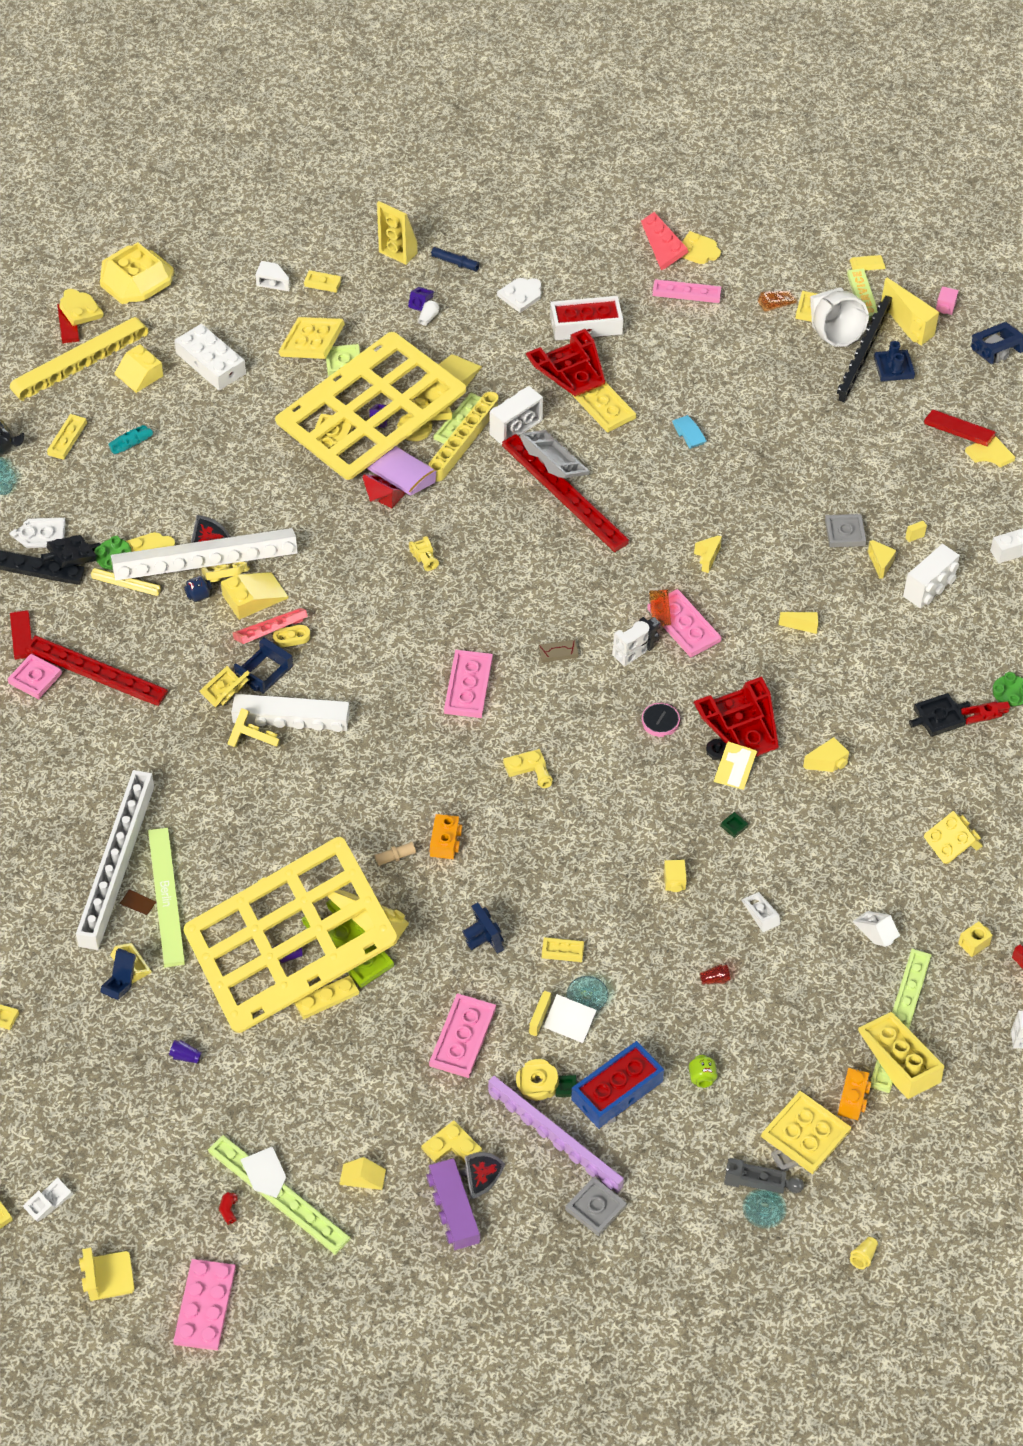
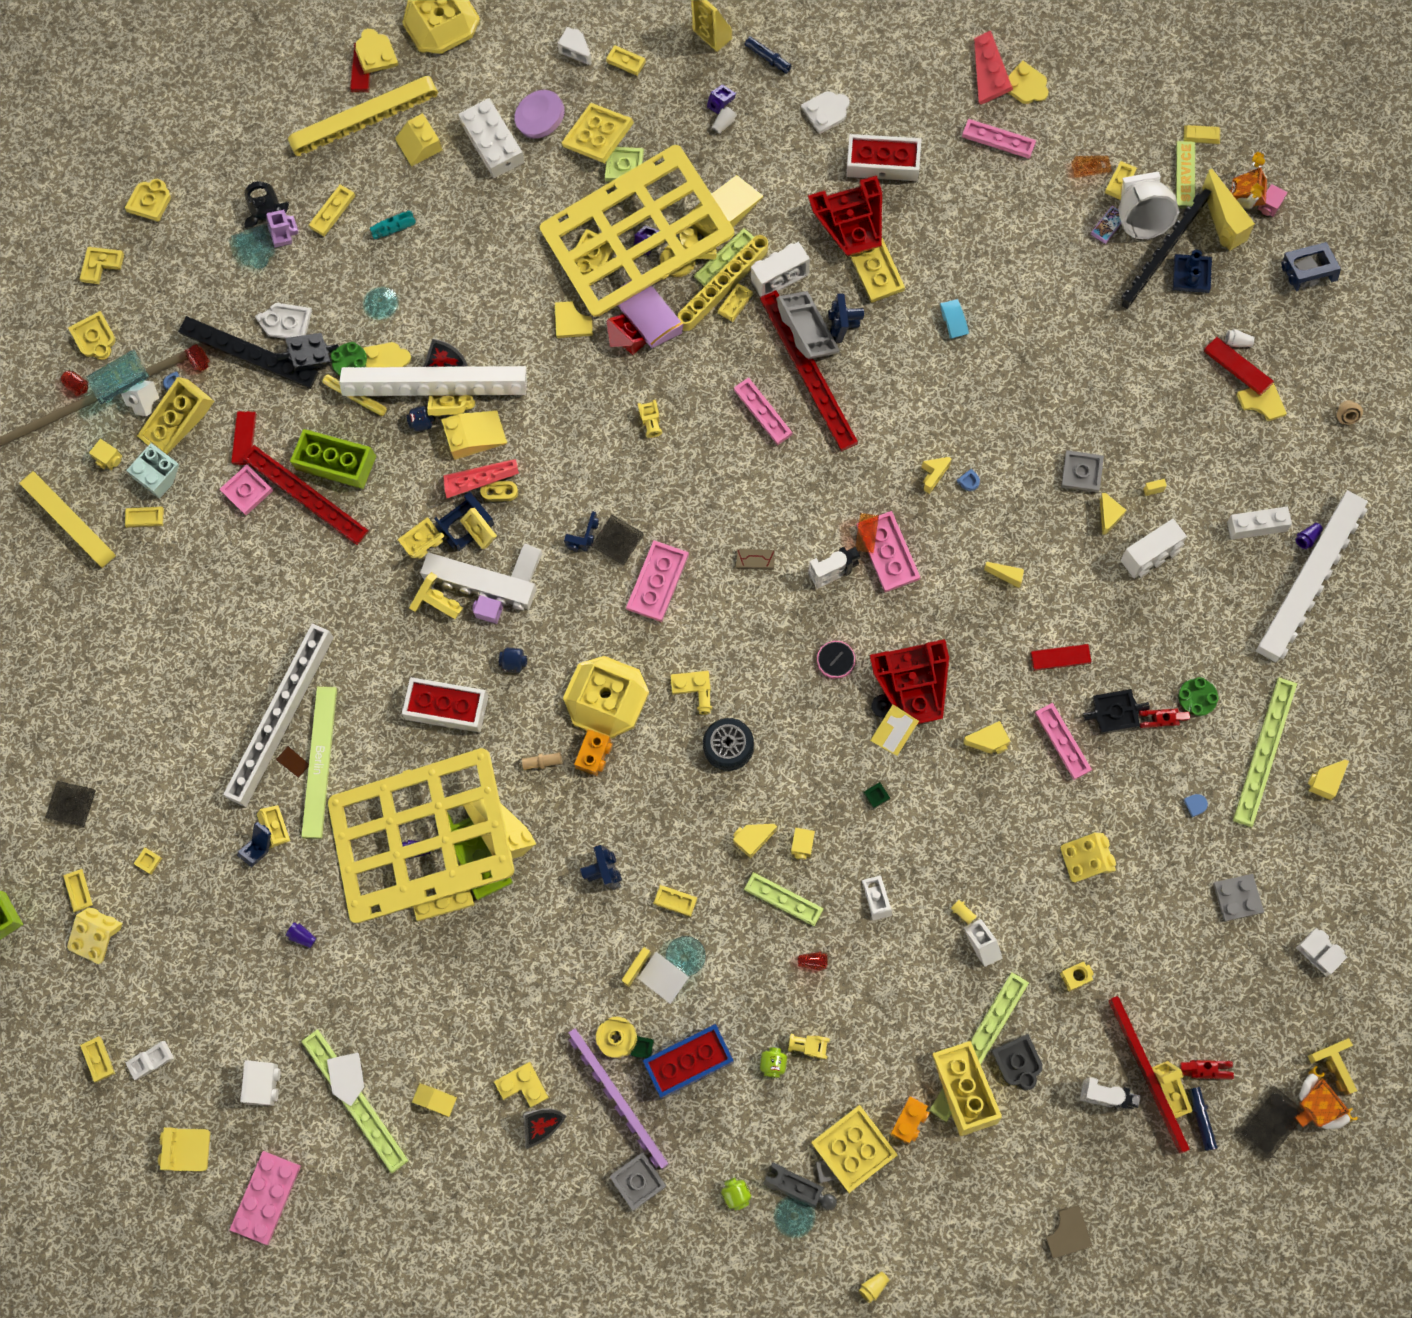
camera: 20 degrees right, 20 degrees up
(19, 456) = (281, 228): none -> lavender brick
(118, 633) = (333, 458): none -> lime brick
(133, 504) = (382, 309): none -> clear light blue dish
(175, 1192) = (260, 1083): none -> white slope
(225, 1207) = (303, 1105): red arm -> none
(251, 332) = (539, 114): none -> lavender piece
(280, 666) = (478, 528): none -> light yellow plate
(285, 820) = (445, 705): none -> brick
(306, 734) = (487, 609): none -> lavender brick
(325, 491) = (570, 322): none -> light yellow tile
(335, 687) = (527, 563): none -> white slope
(342, 773) = (512, 660): none -> dark blue head
(384, 664) = (577, 543): none -> dark blue bracket
(419, 656) = (617, 539): none -> clear smoke plate
(429, 796) = (611, 714): none -> light yellow piece
(453, 1203) = (507, 1150): medium lavender brick -> none
(462, 1035) = (559, 973): bright pink plate -> none
(479, 450) = (735, 302): none -> light yellow plate
(531, 531) = (763, 411): none -> bright pink plate
(577, 805) = (741, 744): none -> wheel
(584, 442) = (843, 318): none -> dark blue plate
(625, 879) = (753, 837): none -> light yellow slope
(670, 929) = (783, 899): none -> yellowish green tile
(699, 1196) = (736, 1194): none -> lime head
(734, 1049) = (809, 1046): none -> light yellow connector
(742, 556) = (969, 481): none -> medium blue tile
(806, 341) = (1107, 225): none -> tile
(849, 906) = (963, 912): none -> light yellow pin
(873, 681) = (1061, 657): none -> red tile
(898, 747) = (1063, 741): none -> bright pink plate
(926, 287) = (1252, 186): none -> torso
(943, 1024) = (1018, 1062): none -> dark grey plate
(953, 407) = (1238, 339): none -> white cone

